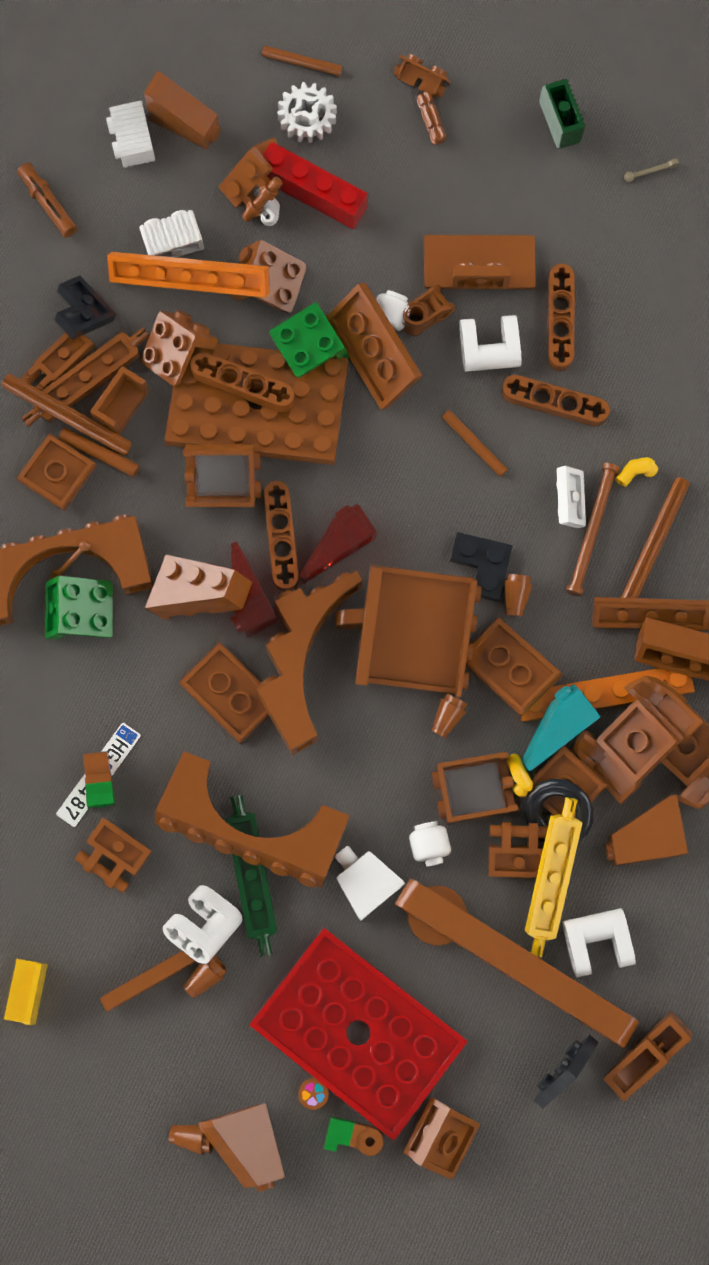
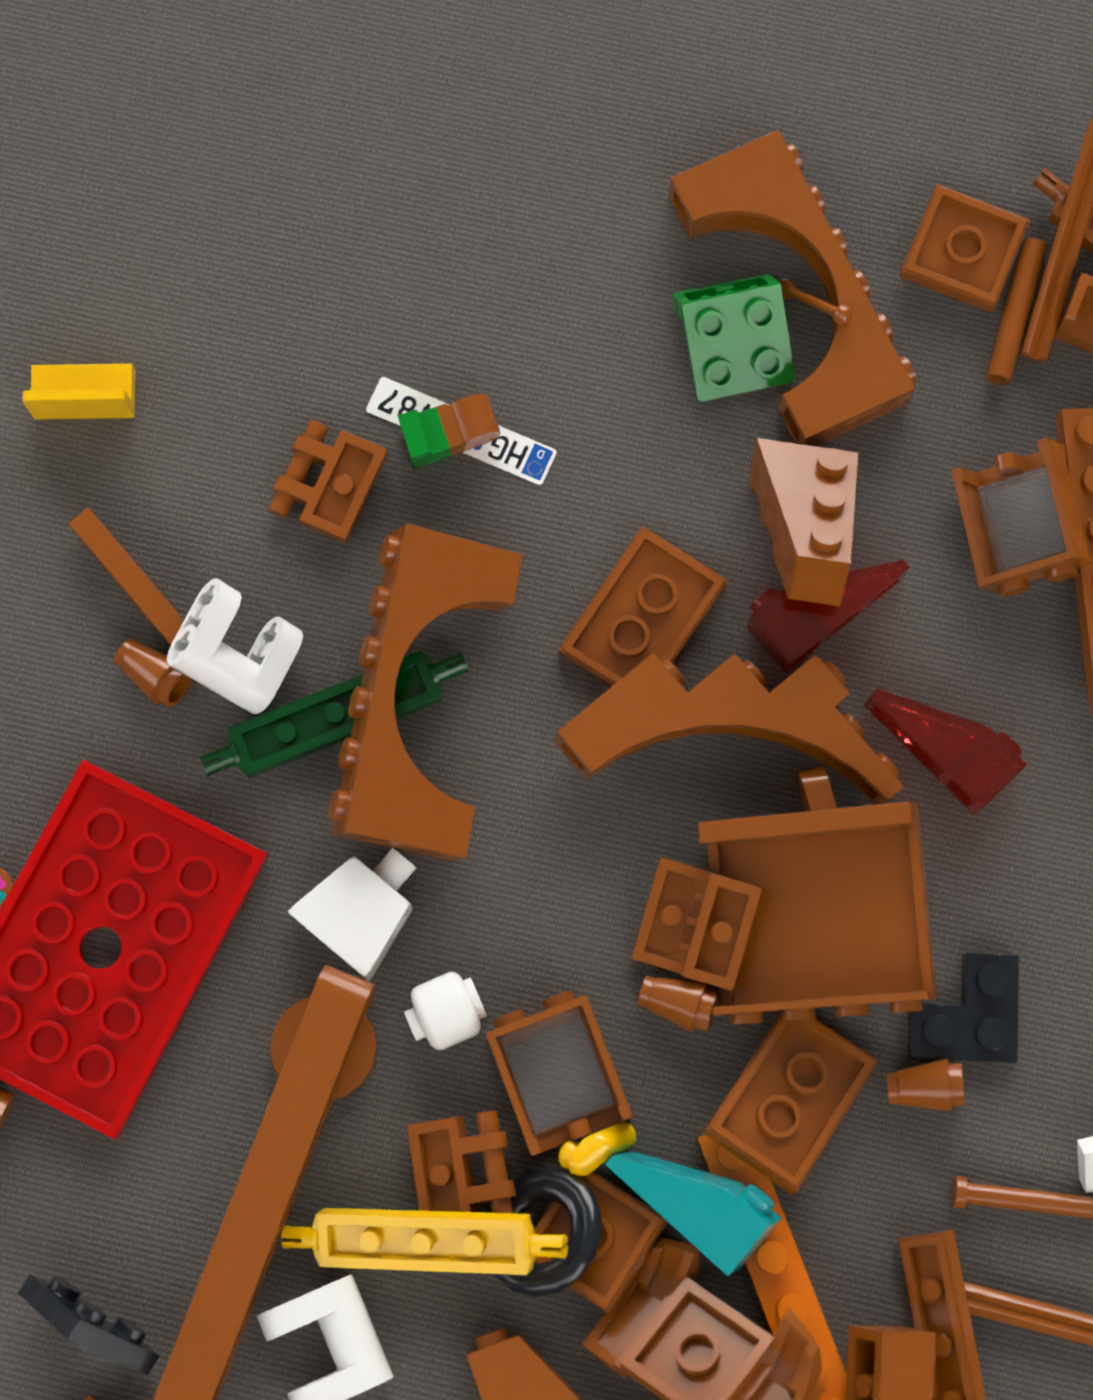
camera: 80 degrees right, 0 degrees up
(281, 535) = (941, 652): dark orange beam -> none
(408, 697) = (697, 923): none -> dark orange slope

